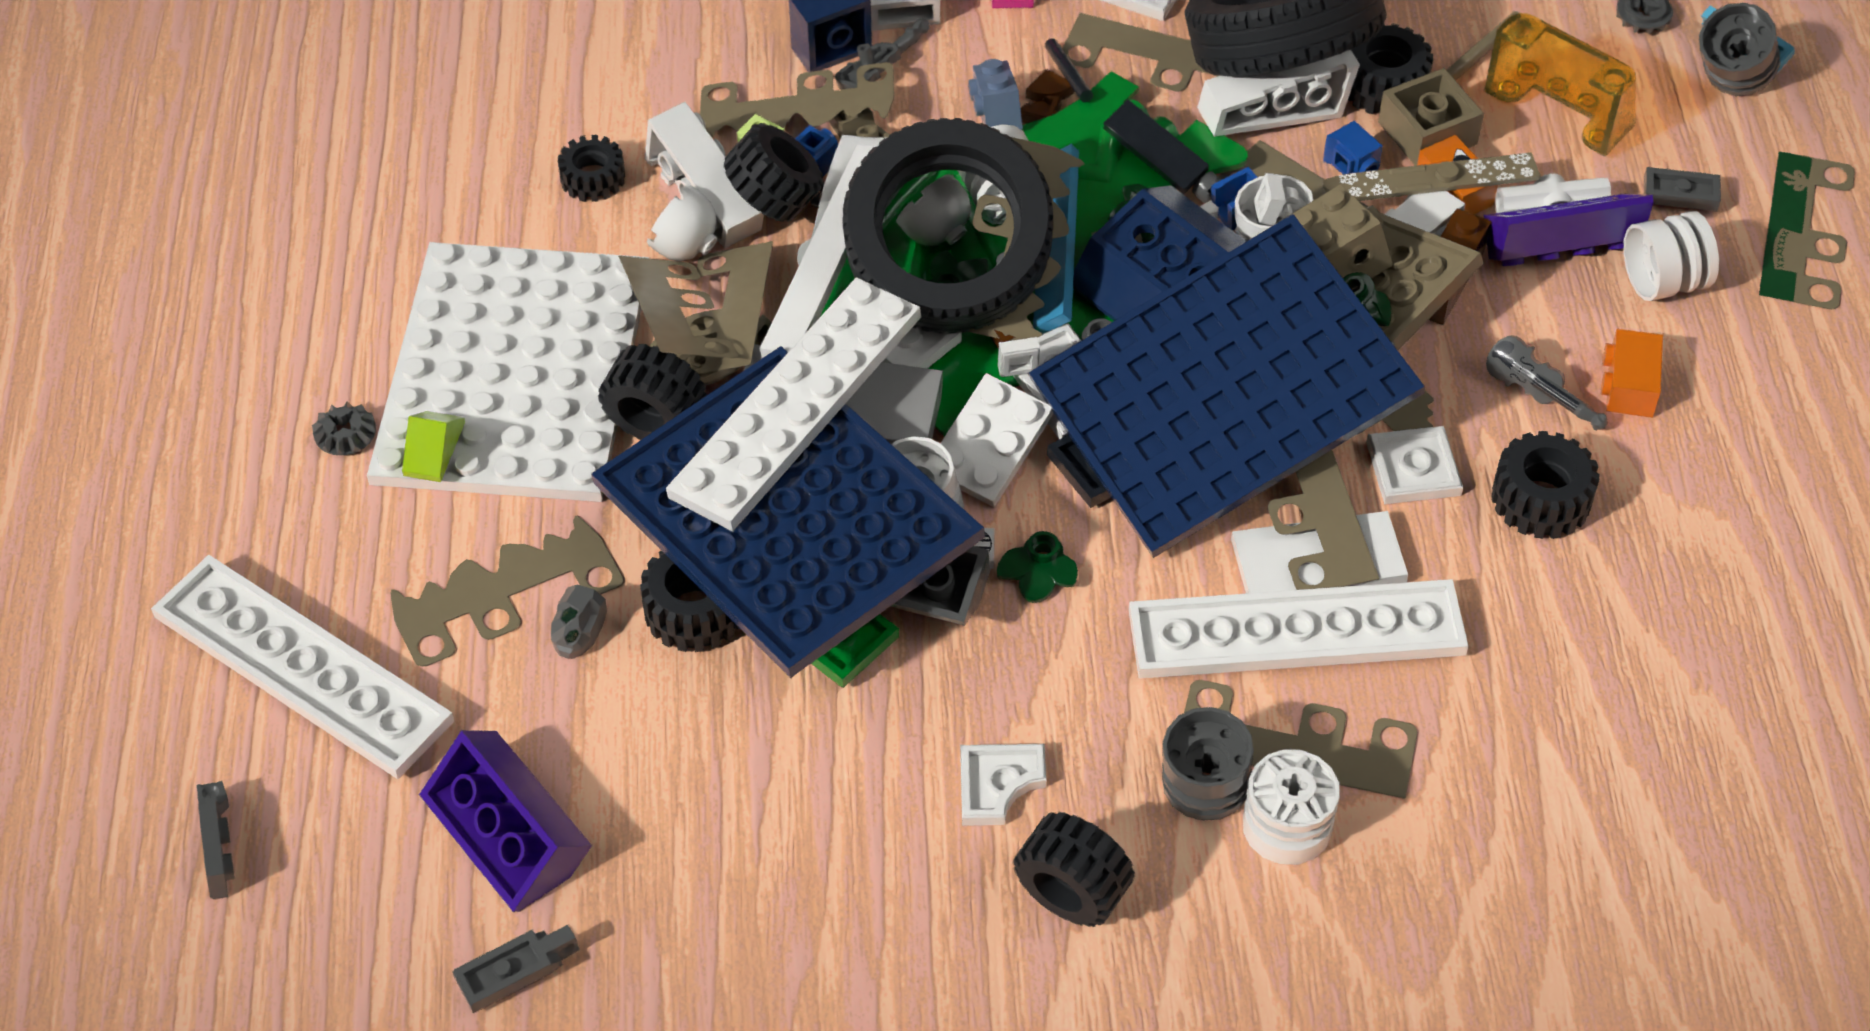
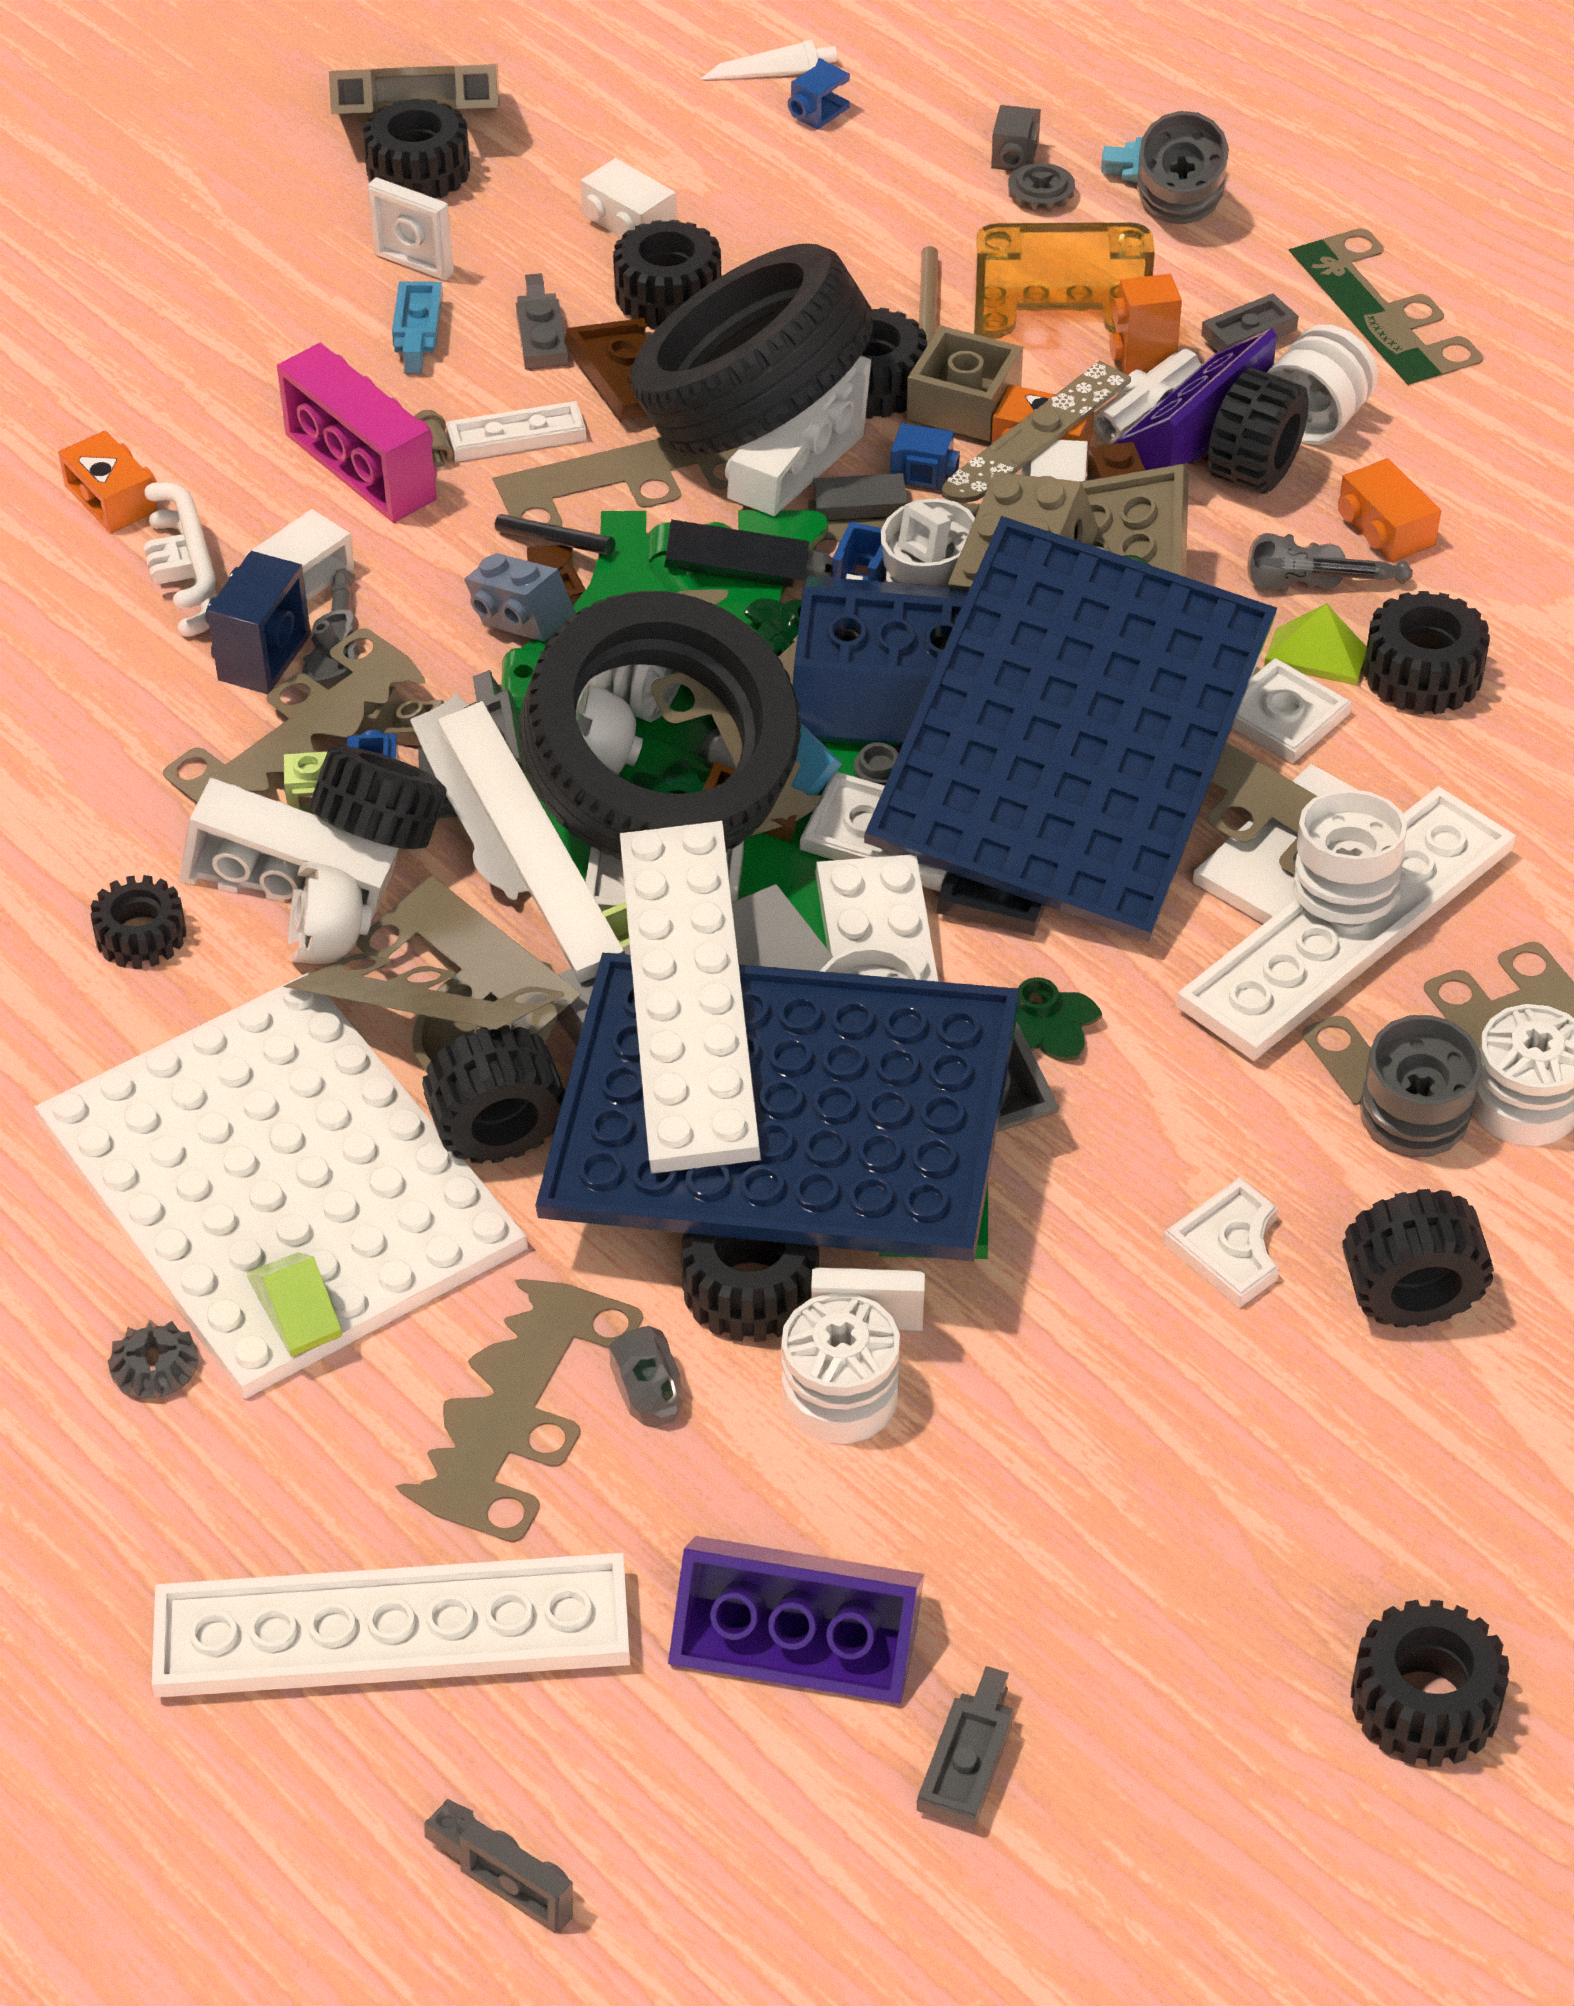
camera: 40 degrees left, 5 degrees down
(673, 691) = (840, 1368): none -> white wheel
(729, 660) = (895, 1290): none -> white tile
(1018, 356) = (834, 826): white tile -> none
(1289, 156) = (859, 496): none -> dark grey tile
(1314, 584) = (1349, 856): none -> white wheel
(1480, 436) = (1319, 646): none -> lime slope
(1586, 262) = (1258, 430): none -> black tyre
(1594, 144) = (1145, 322): none -> orange brick

